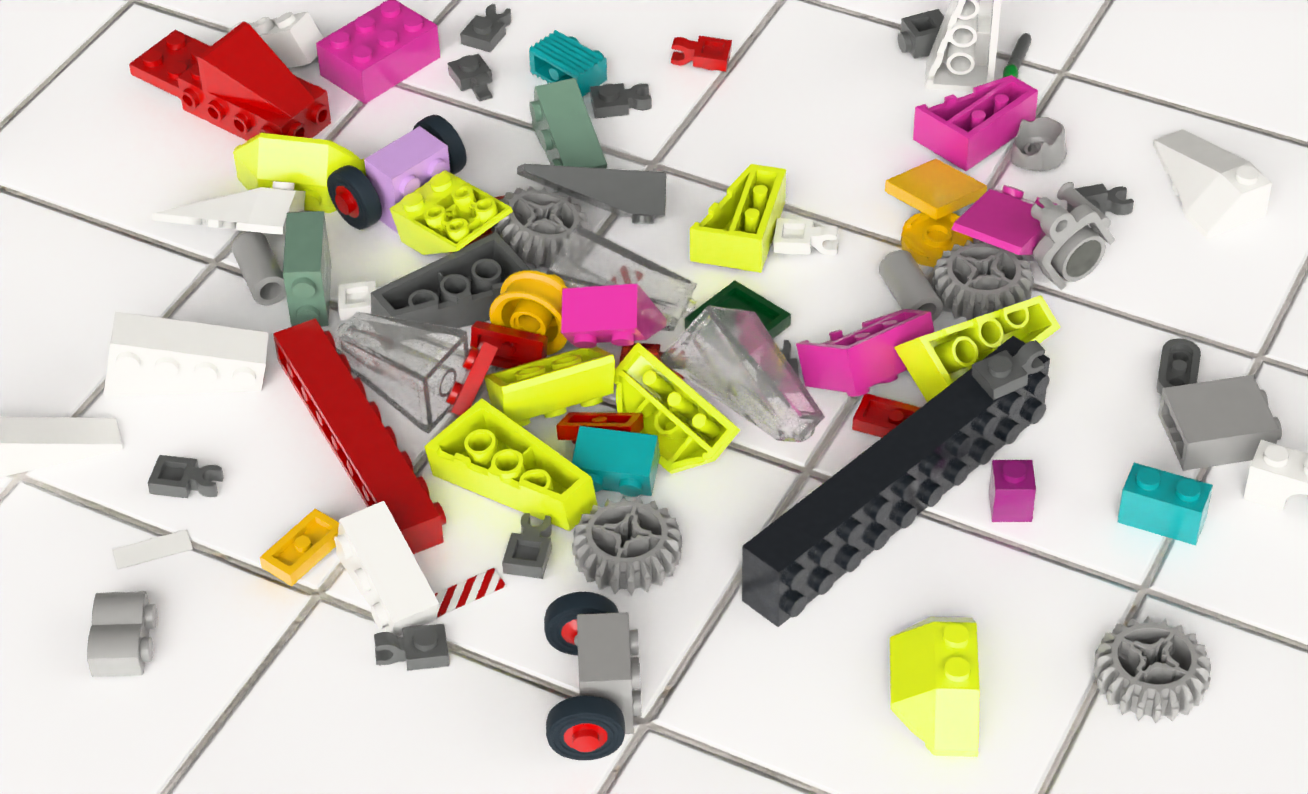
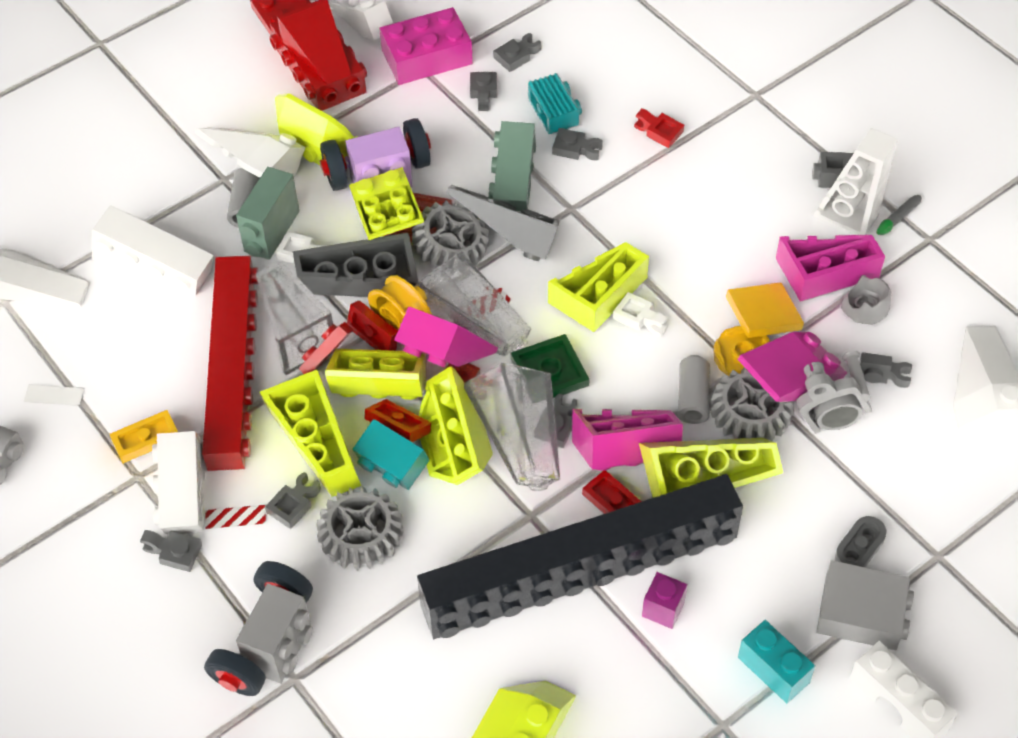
camera: 25 degrees right, 10 degrees up
(180, 475) = (99, 345): dark grey plate -> none
(1004, 374) = (696, 507): dark grey plate -> none

